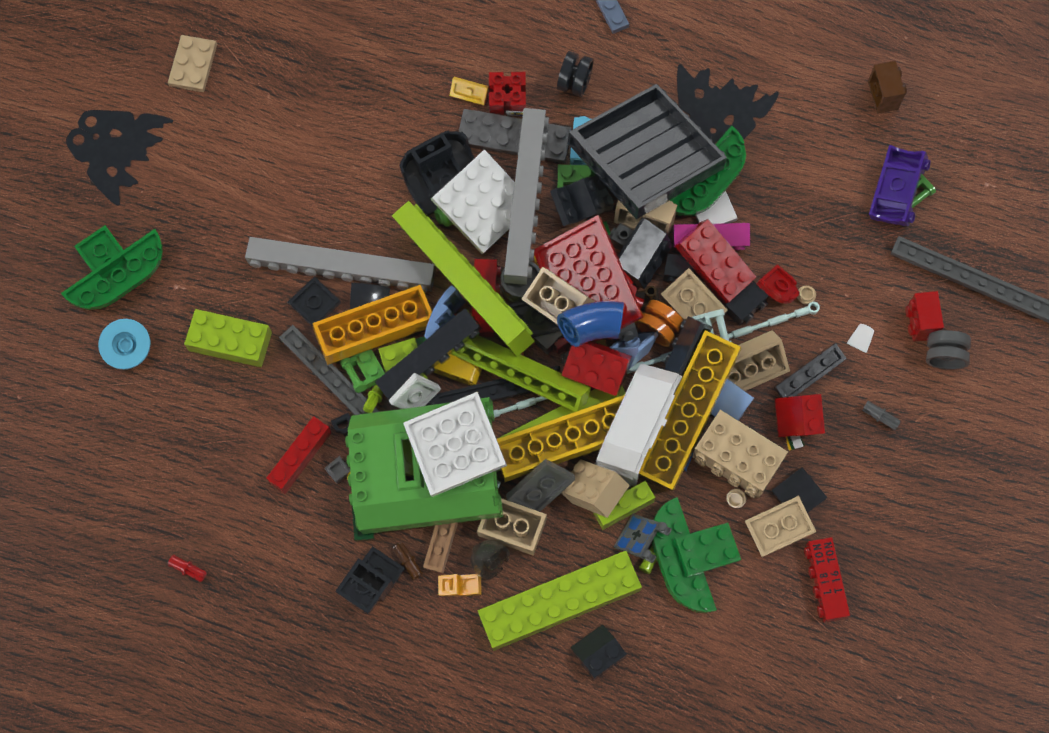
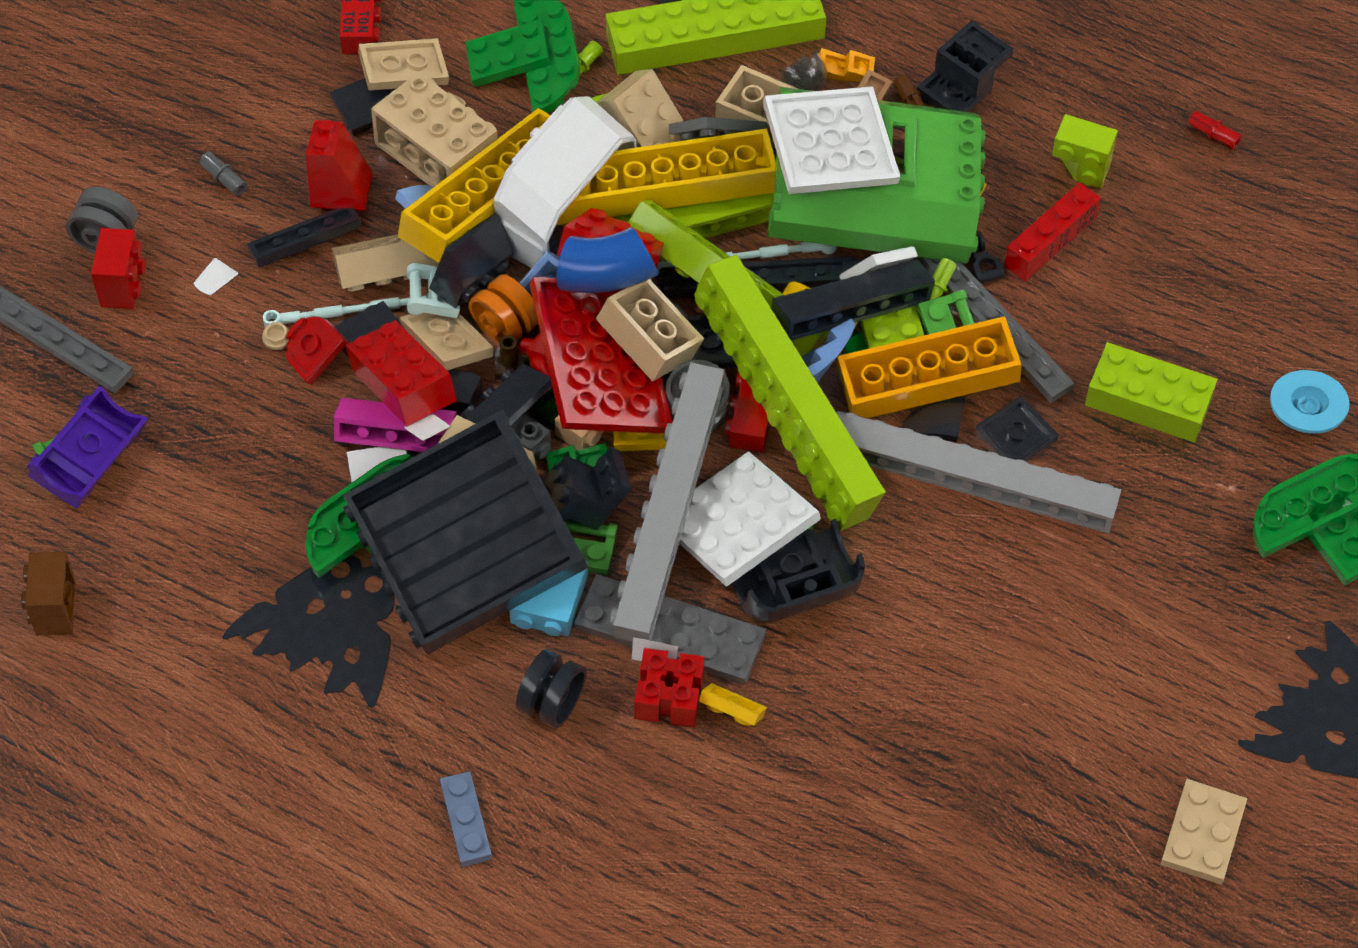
camera: 175 degrees left, 15 degrees down
(279, 519) = (1085, 149): none -> lime slope
(337, 470) = (998, 216): flat silver tile -> none
(638, 536) = (595, 70): dark grey flag -> none
(687, 217) = (427, 427): none -> white sticker

